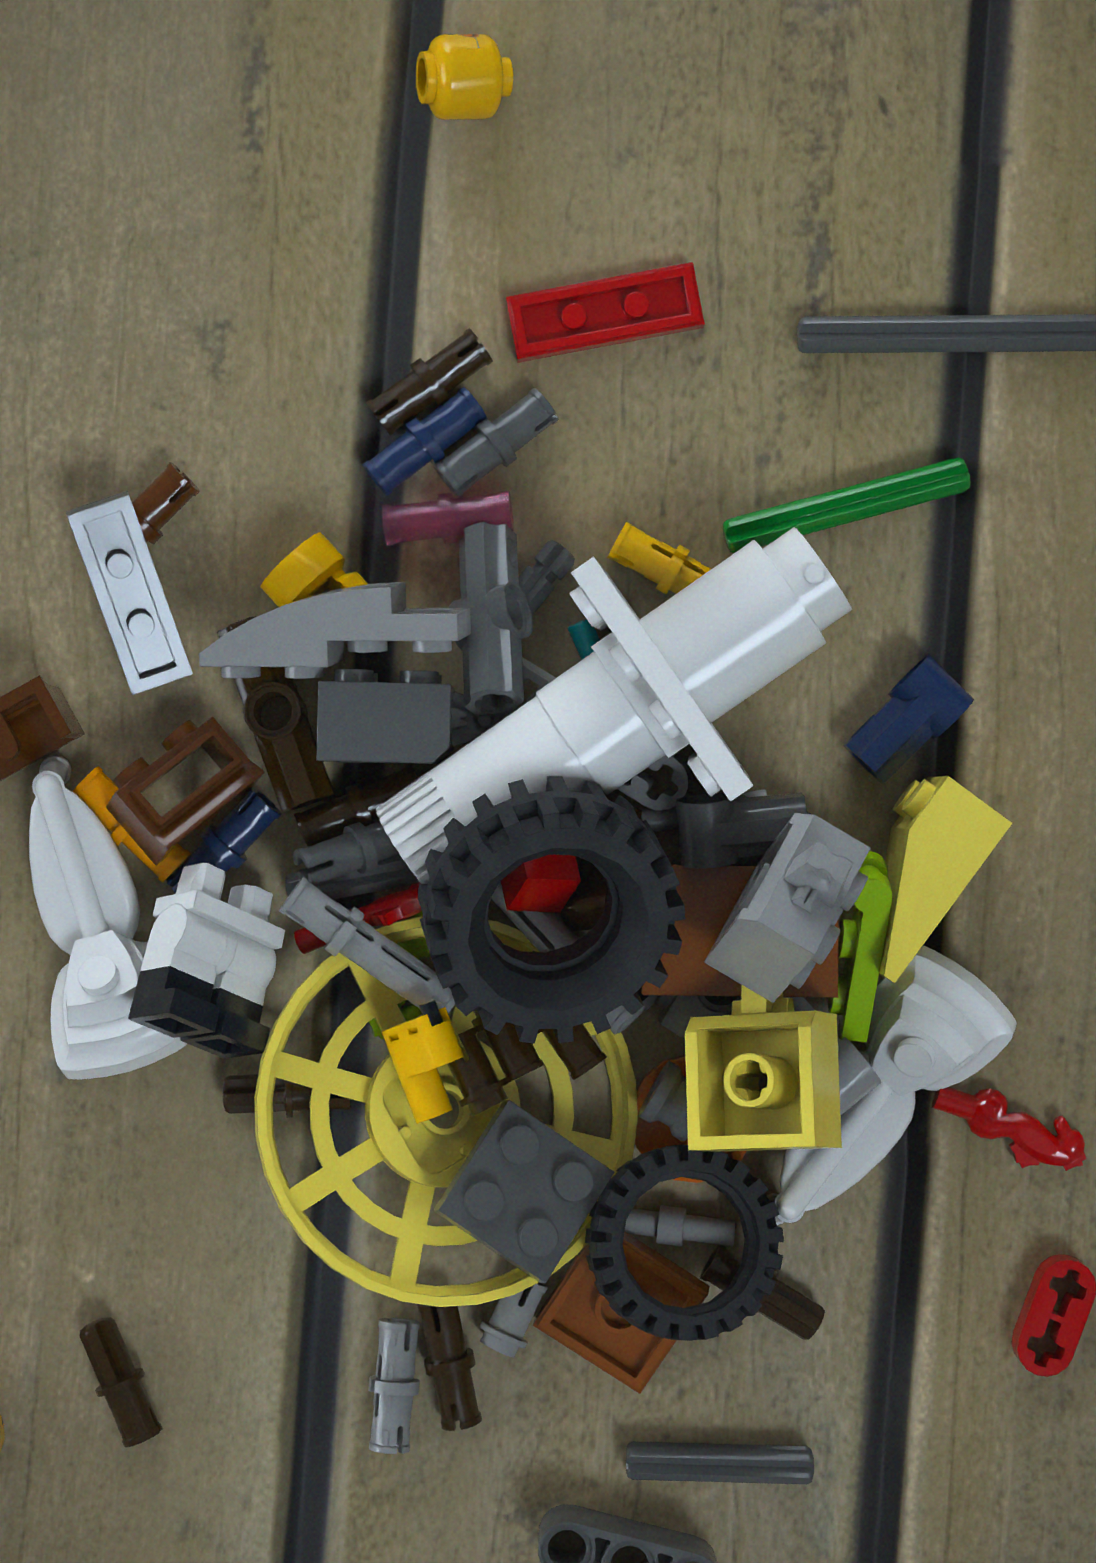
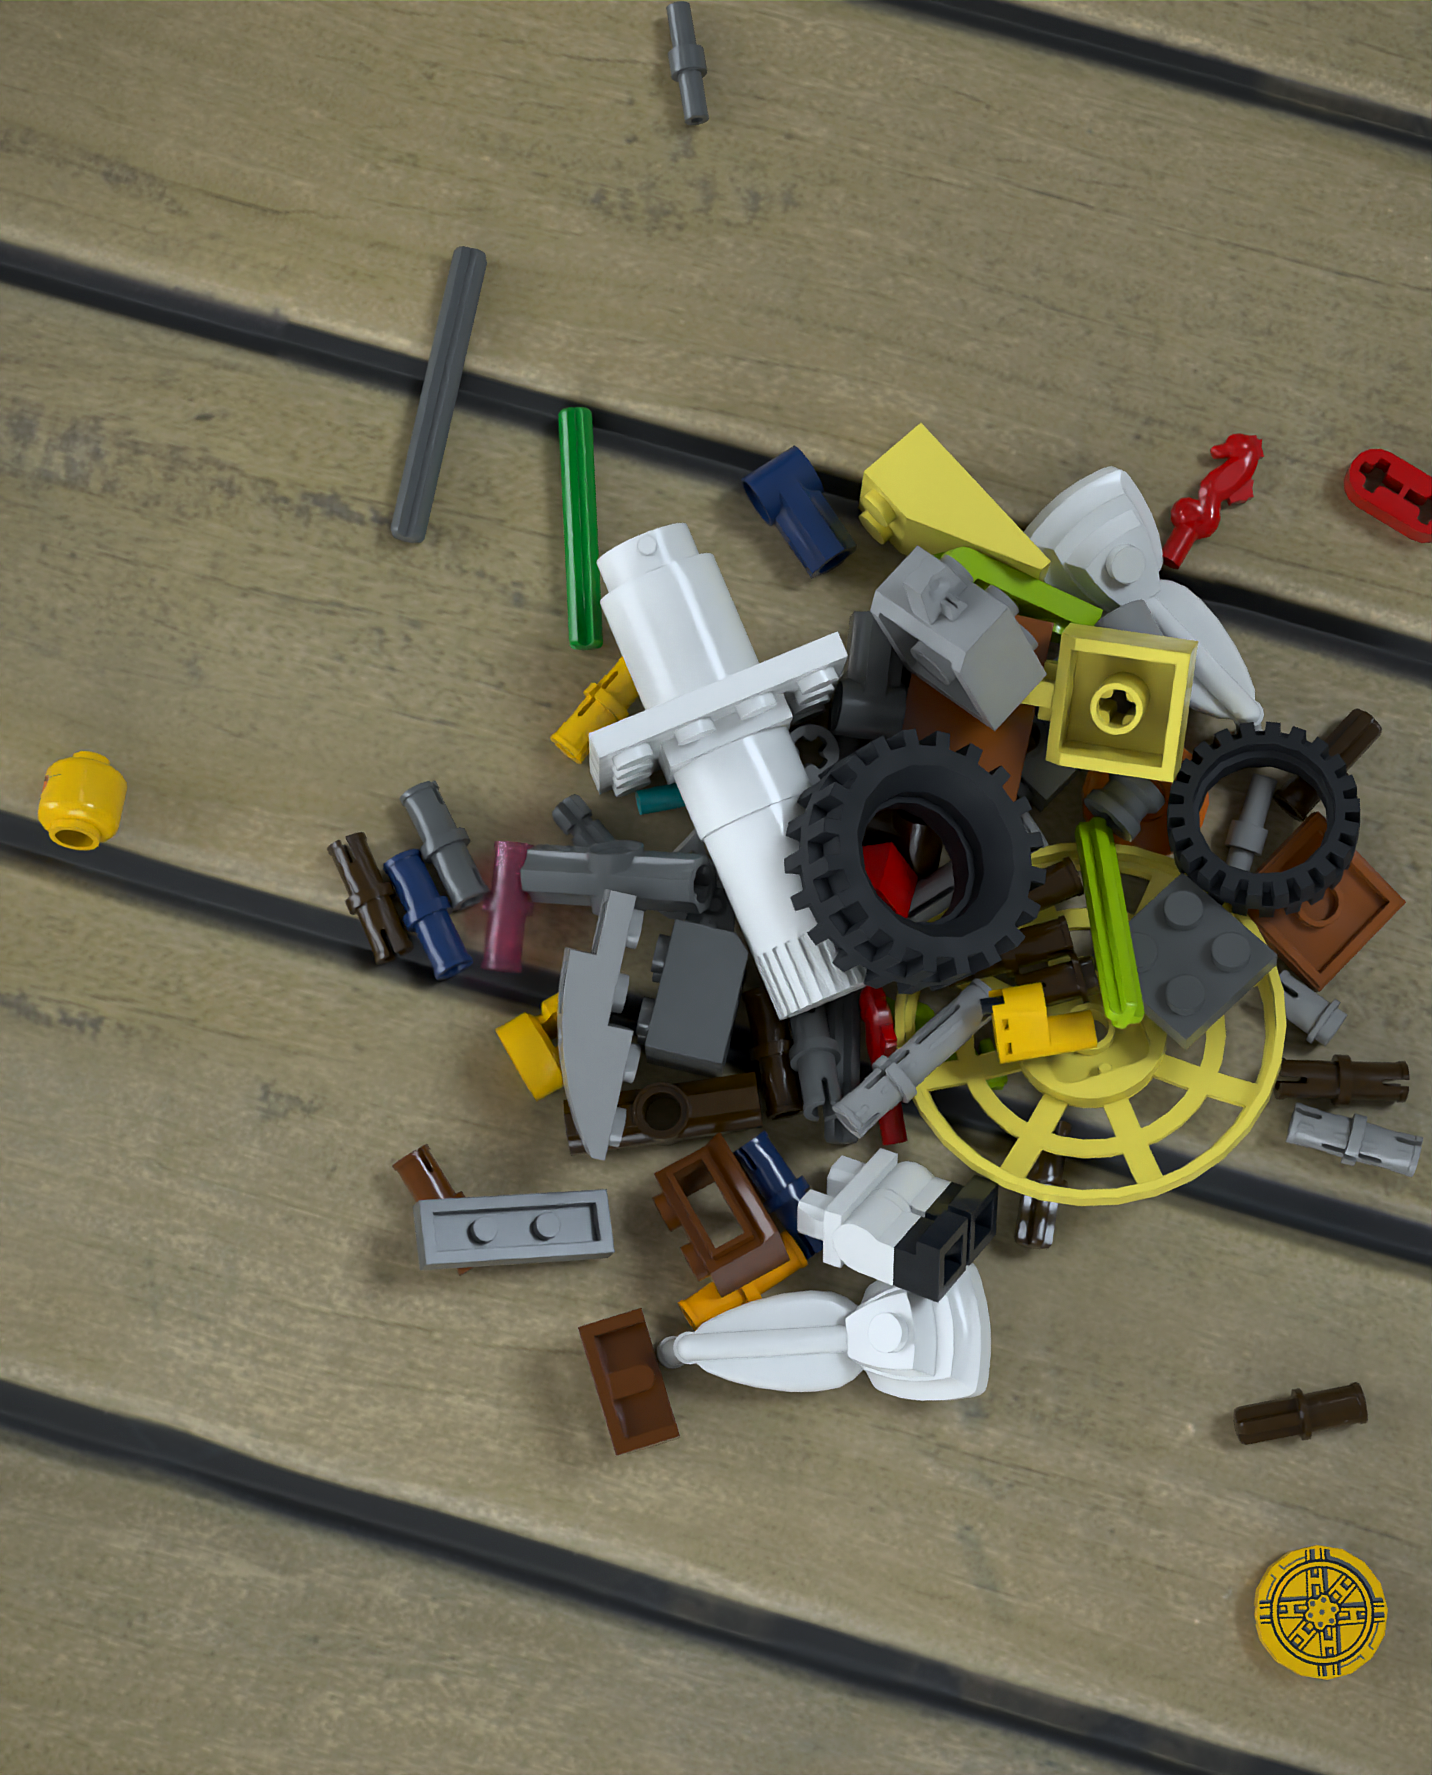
camera: 80 degrees left, 10 degrees down
(541, 1111) = (1109, 923): none -> lime axle
(605, 312) = (341, 717): red tile -> none

